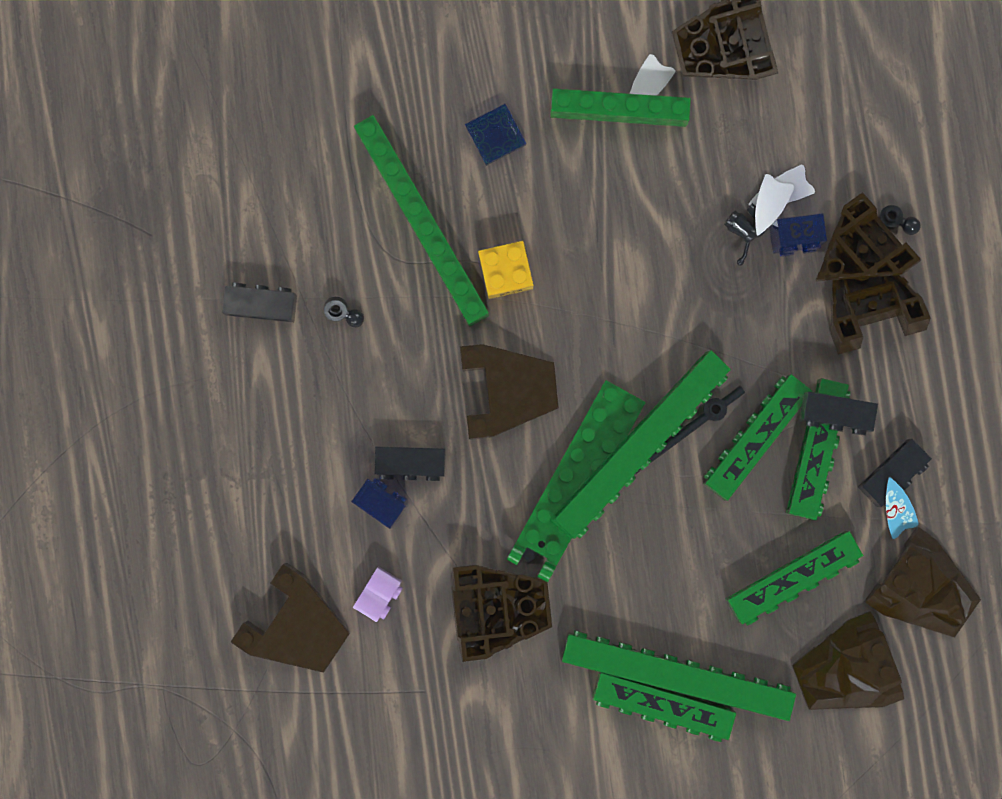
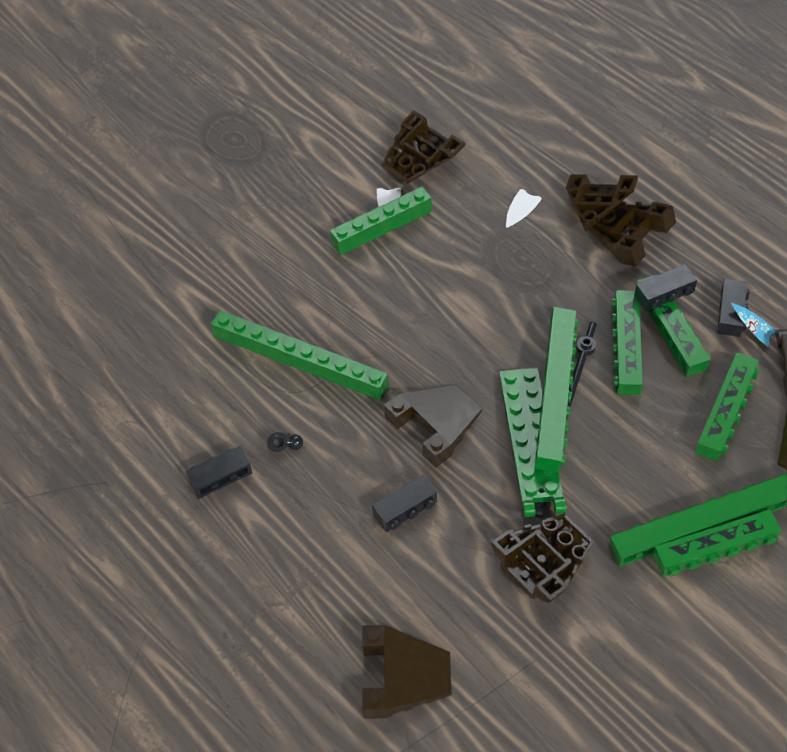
camera: 35 degrees left, 30 degrees down
(377, 594) = (450, 606): lavender brick -> none
(380, 503) = (404, 538): clear blue brick -> none
(495, 134) = (311, 281): clear blue plate -> none
(505, 269) = (379, 347): yellow brick -> none
(742, 227) = (515, 235): black piece -> none
(771, 202) = (519, 215): white sticker -> none
(798, 234) = (551, 216): clear blue brick -> none
(909, 225) = (600, 178): black plate -> none

